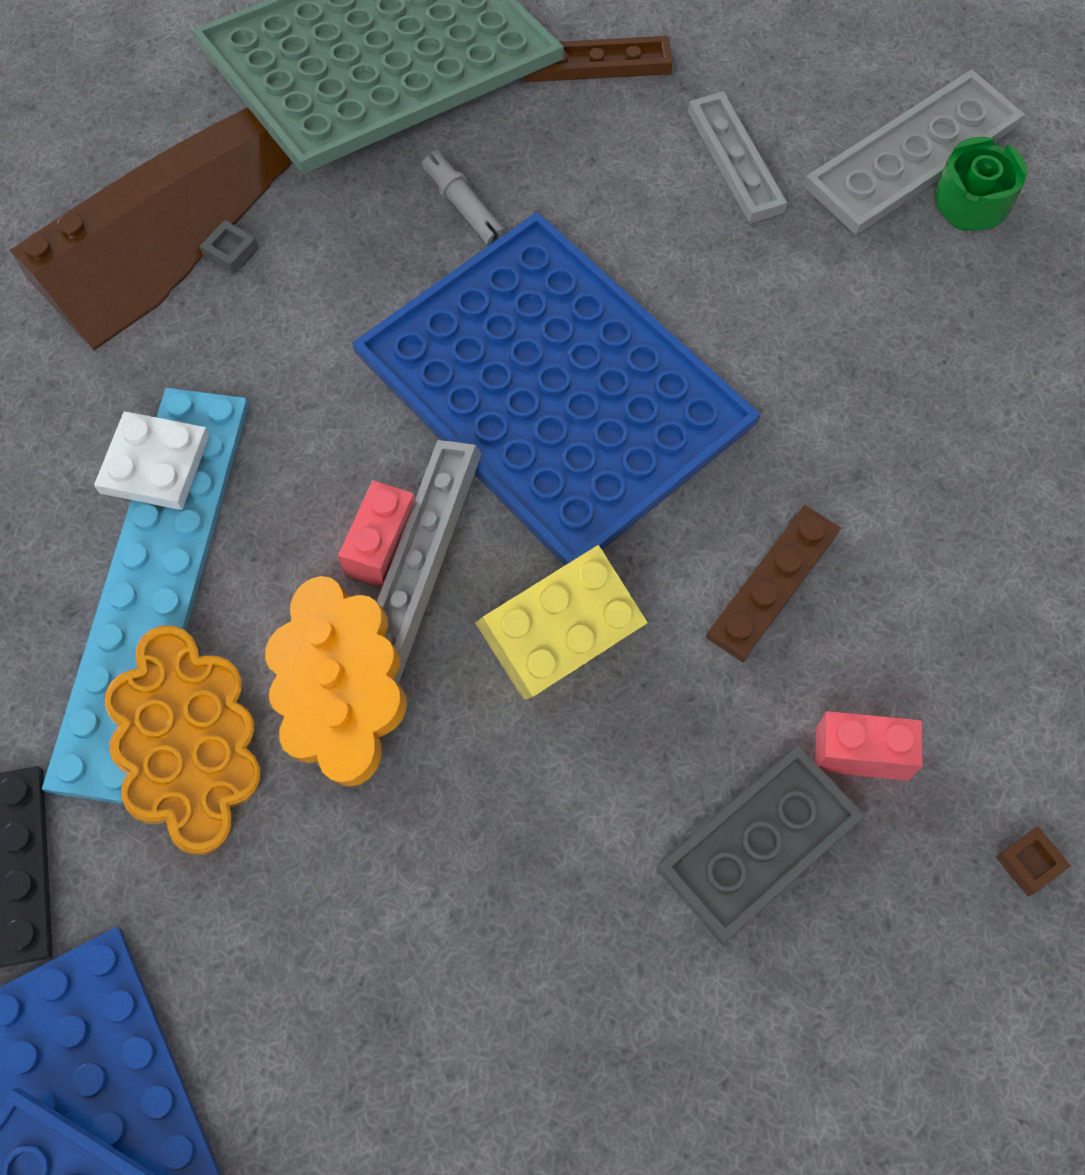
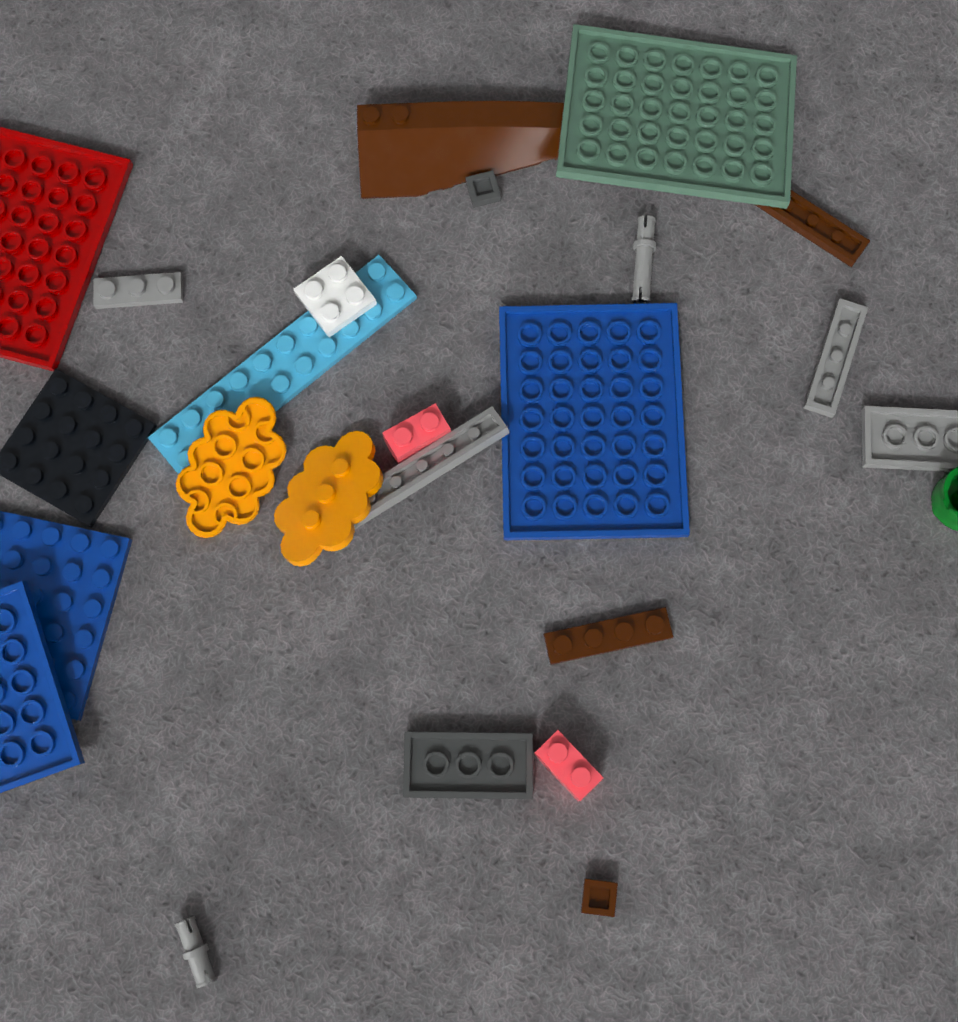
camera: 45 degrees right, 10 degrees up
(561, 622) = (466, 564): light yellow brick -> none

